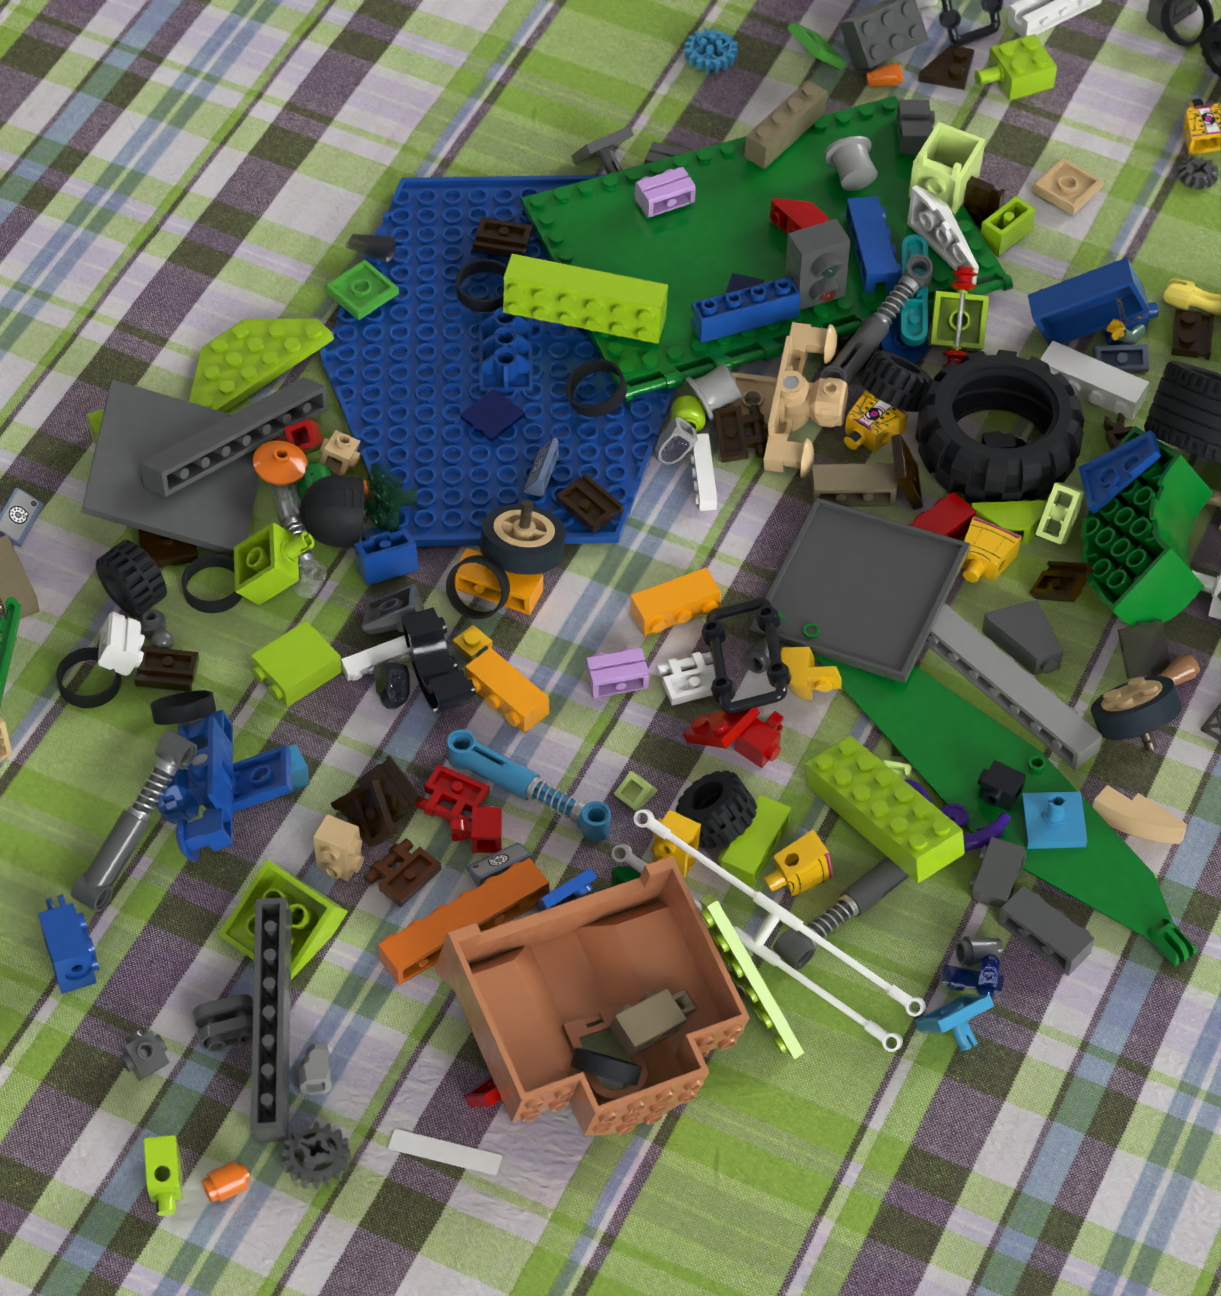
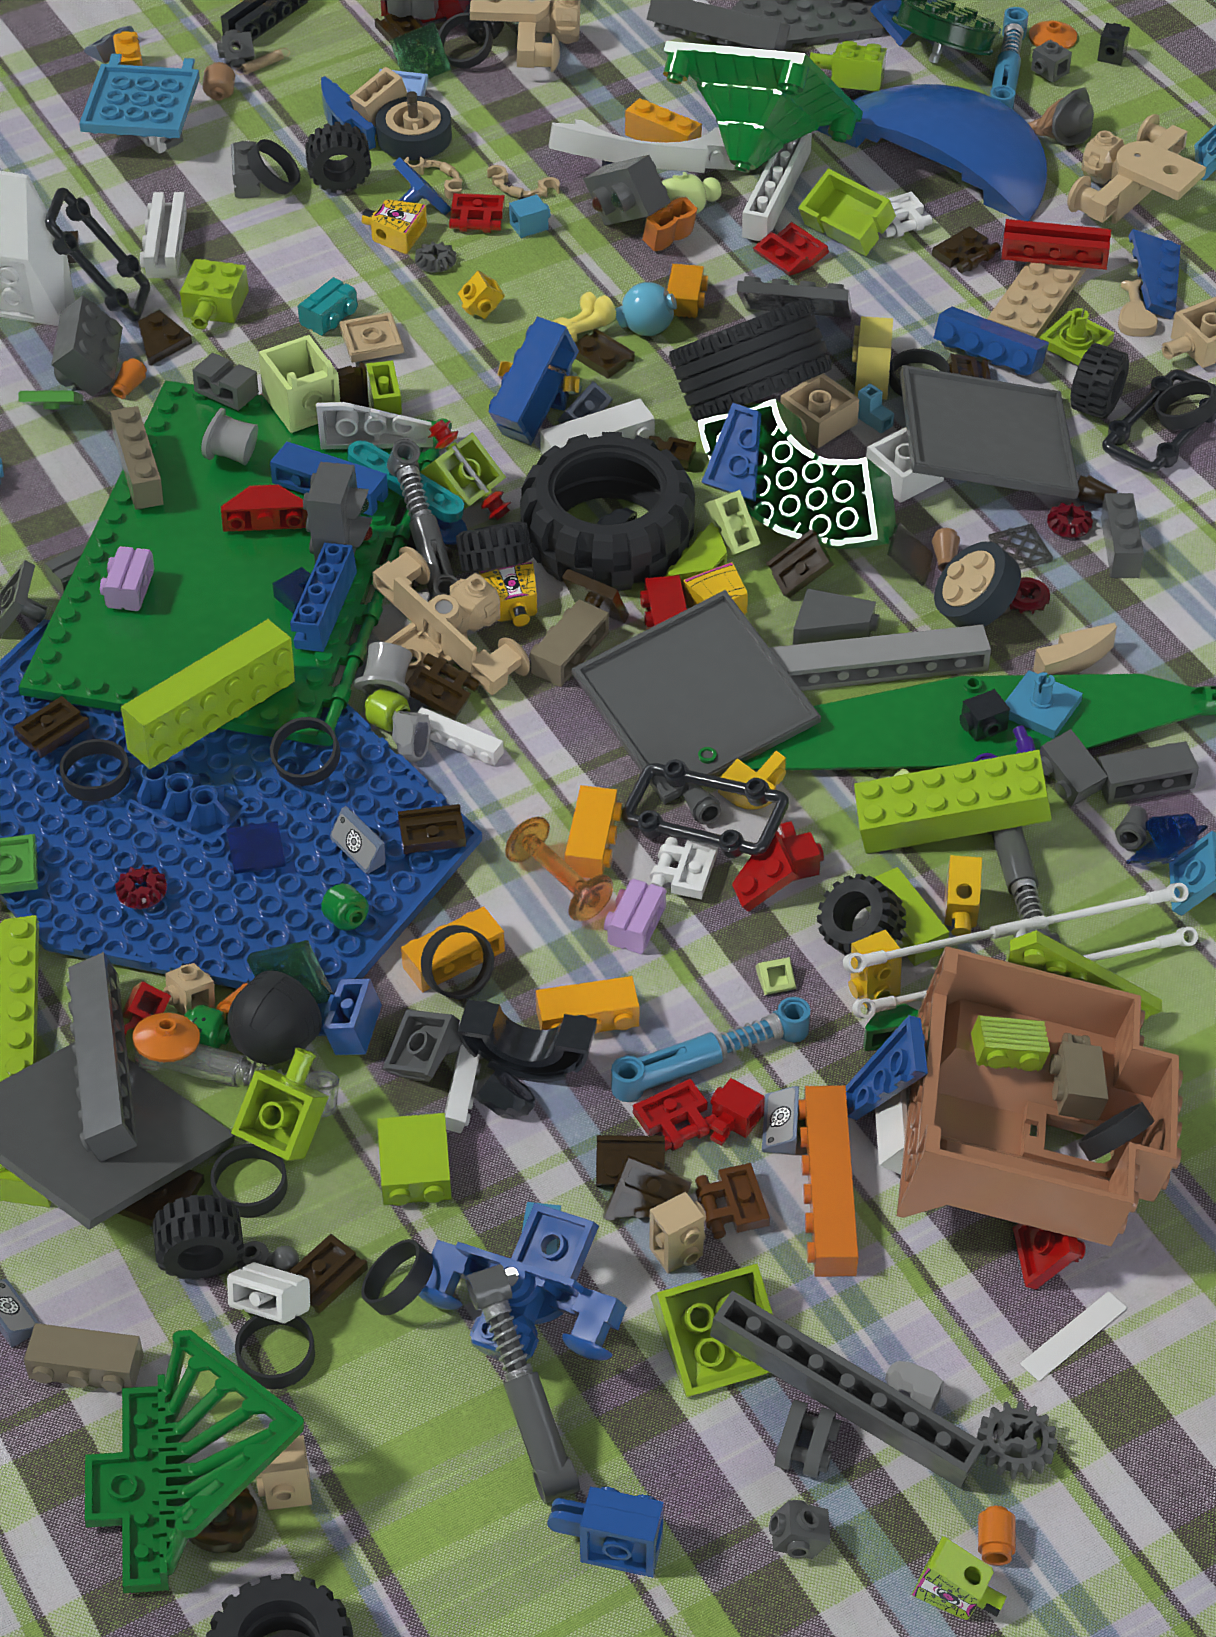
camera: 55 degrees left, 5 degrees down
(414, 377) = (141, 897): none -> dark red gear
(472, 643) = (509, 1003): yellow plate -> none
(473, 494) = (344, 907): none -> green head
(523, 538) = (437, 893): black wheel -> none
(605, 631) = (589, 896): none -> clear orange hose
(642, 956) = (1010, 1043): none -> lime brick
(1073, 140) = (327, 306): none -> teal brick
(1173, 222) = (480, 295): none -> yellow brick
(1190, 753) = (1031, 587): none -> dark red gear

